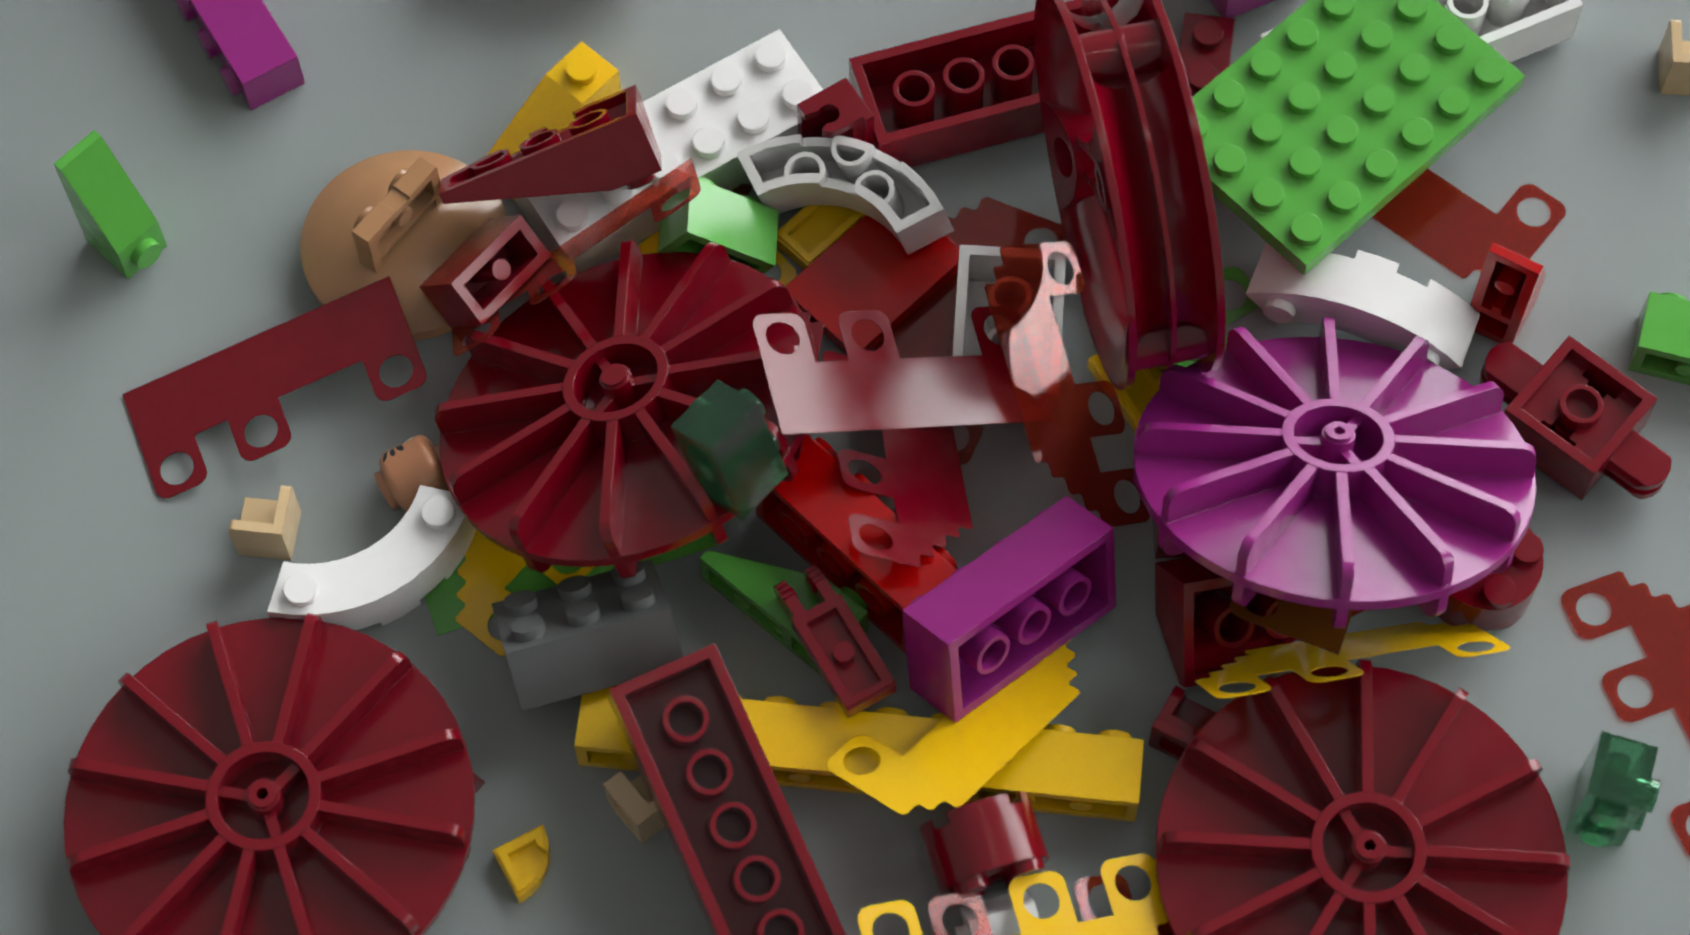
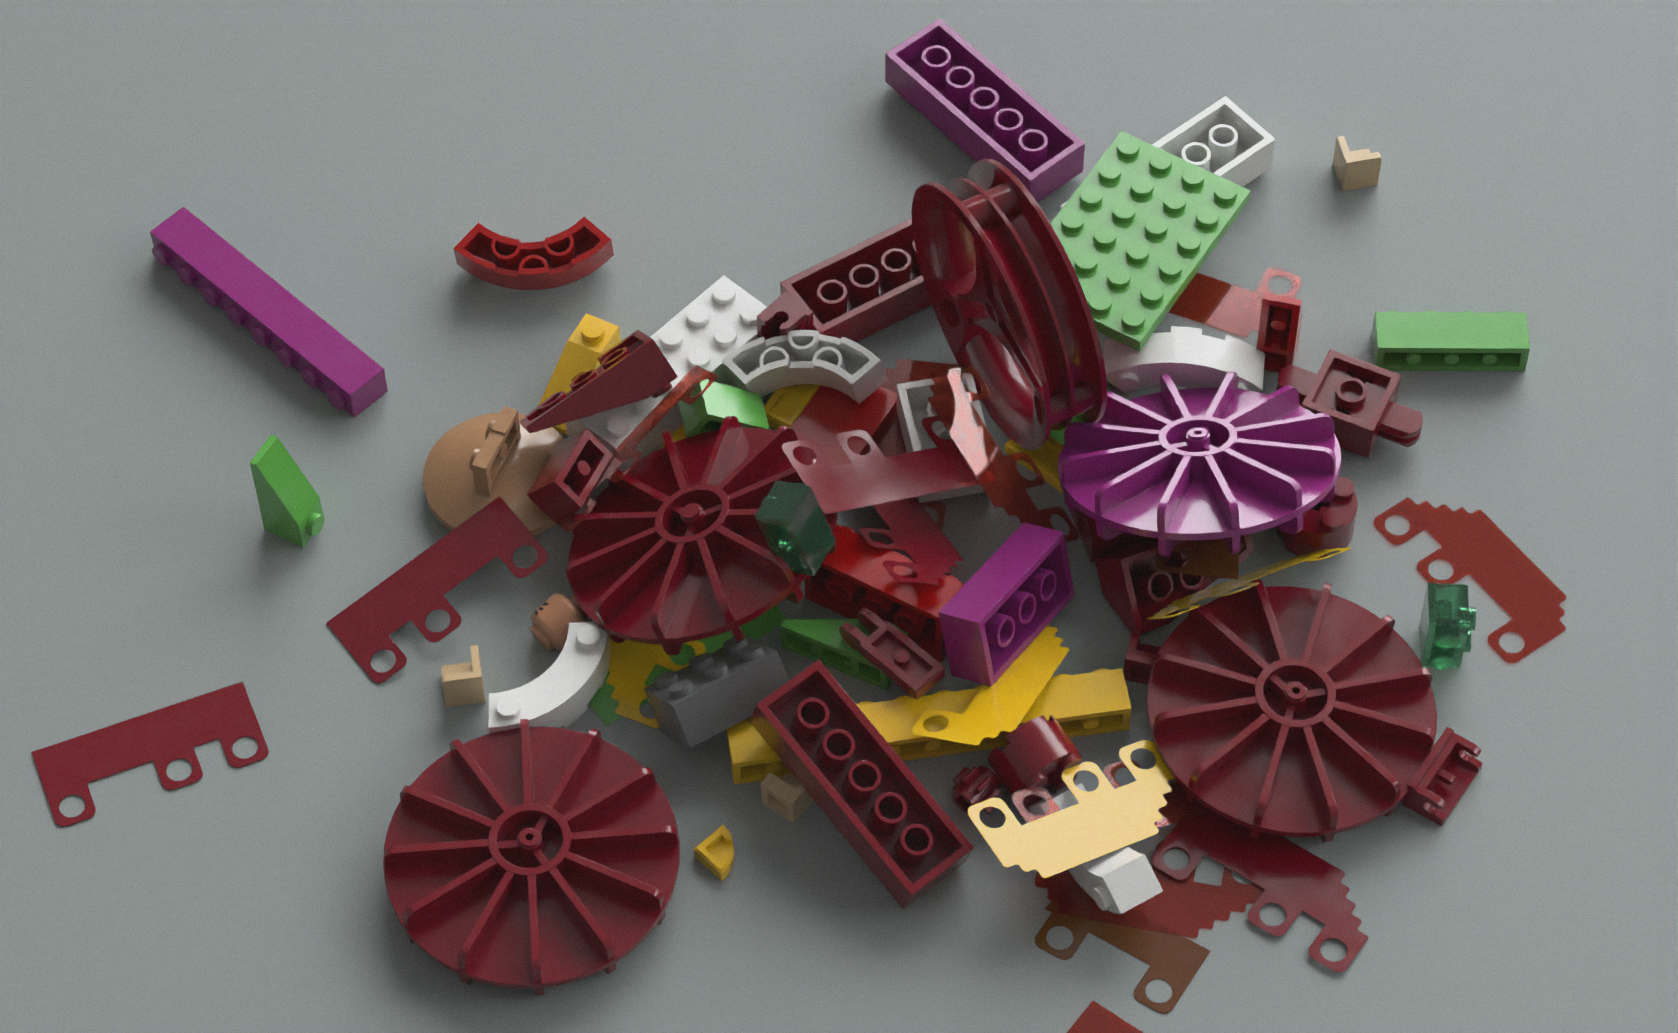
camera: 15 degrees left, 10 degrees down
(894, 866) = (975, 787): none -> dark red gear

